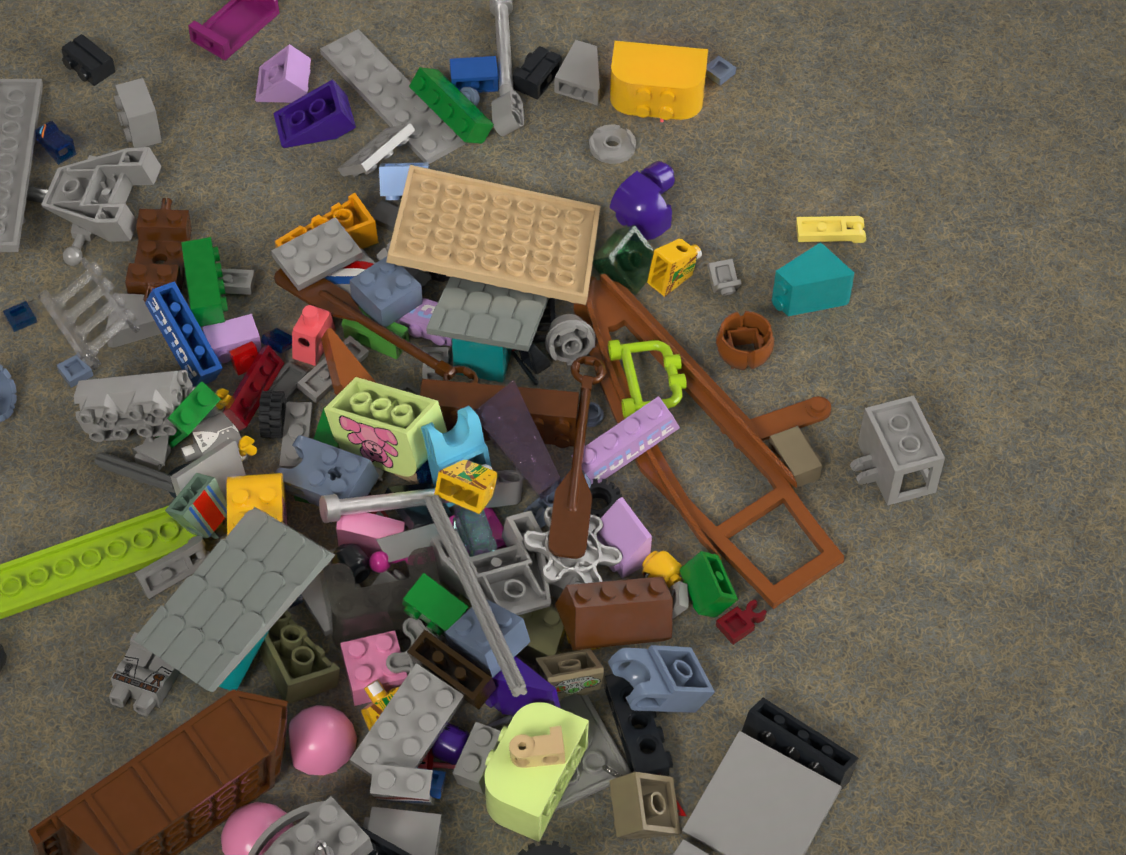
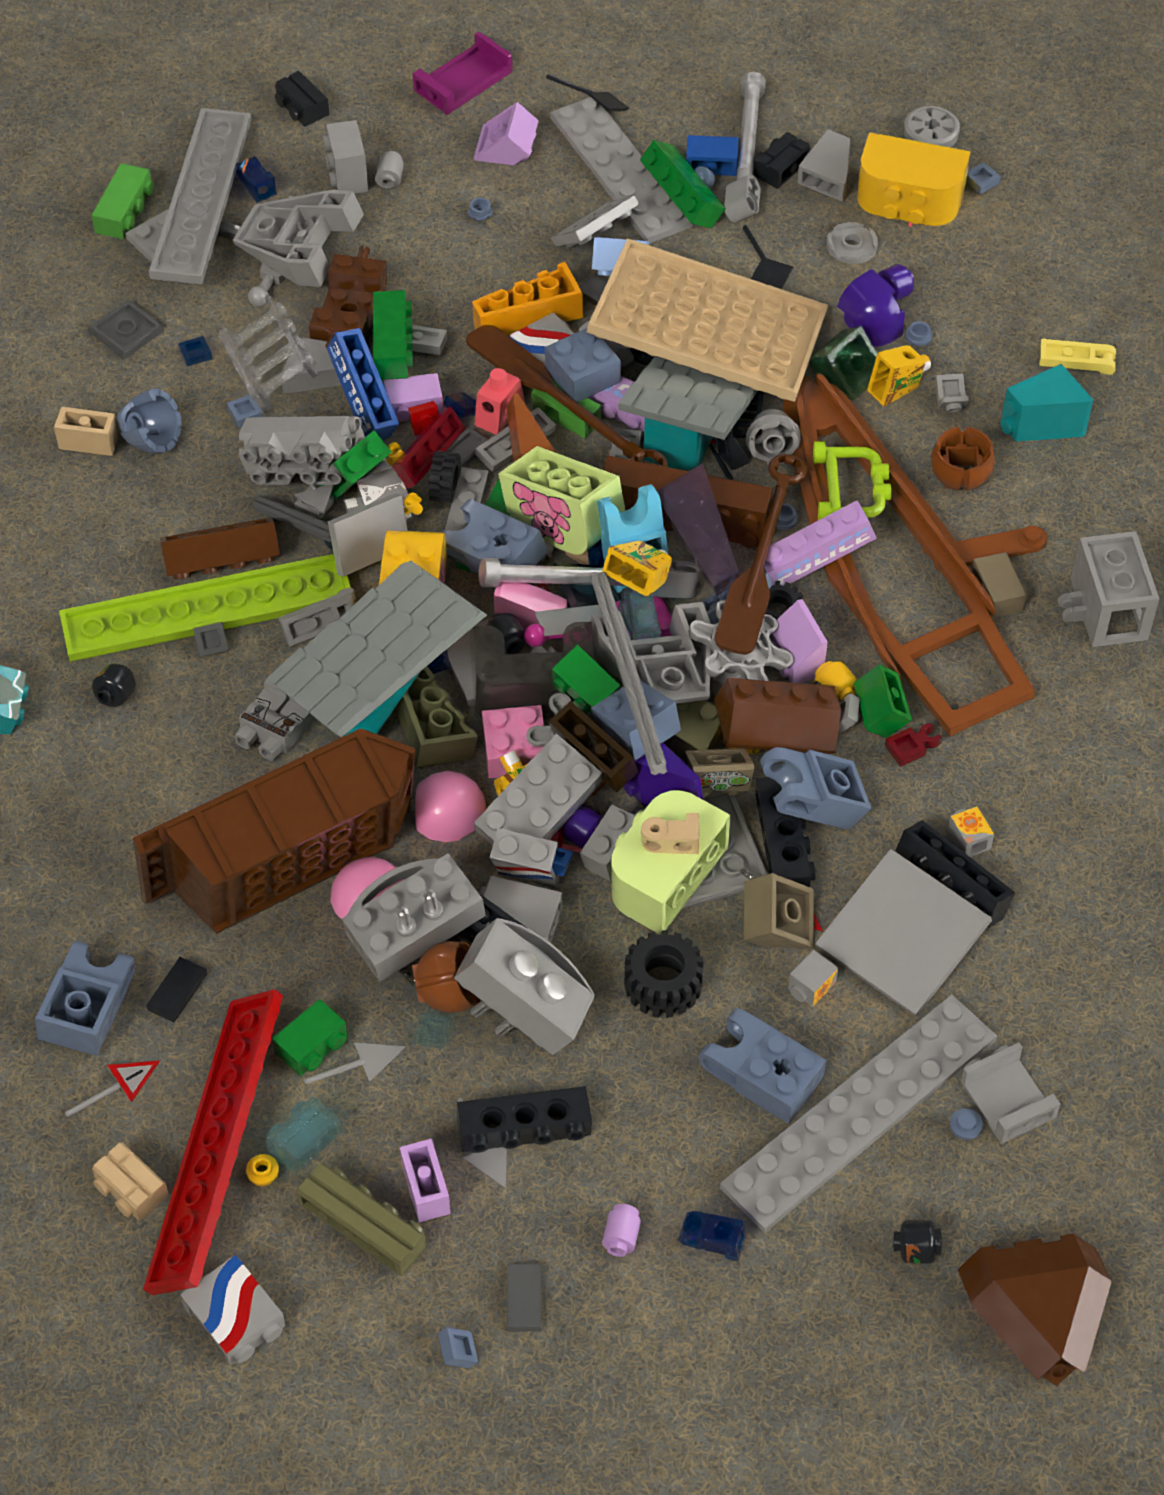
camera: 10 degrees right, 0 degrees up
(69, 508) = (220, 547): none -> reddish brown slope
(72, 601) = (210, 639): none -> dark grey plate
(179, 120) = (389, 170): none -> light grey brick
(200, 507) = (355, 558): sand green torso -> none
(268, 148) = (480, 209): none -> sand blue plate
(315, 117) = (535, 181): dark purple slope -> none
(317, 254) = (514, 318): light grey plate -> none
(367, 30) = (605, 99): none -> black piece
(541, 178) = (768, 271): none -> black piece
(661, 18) = (943, 123): none -> light grey wheel
(686, 224) = (918, 334): none -> sand blue plate
(807, 701) = (970, 831): none -> brick

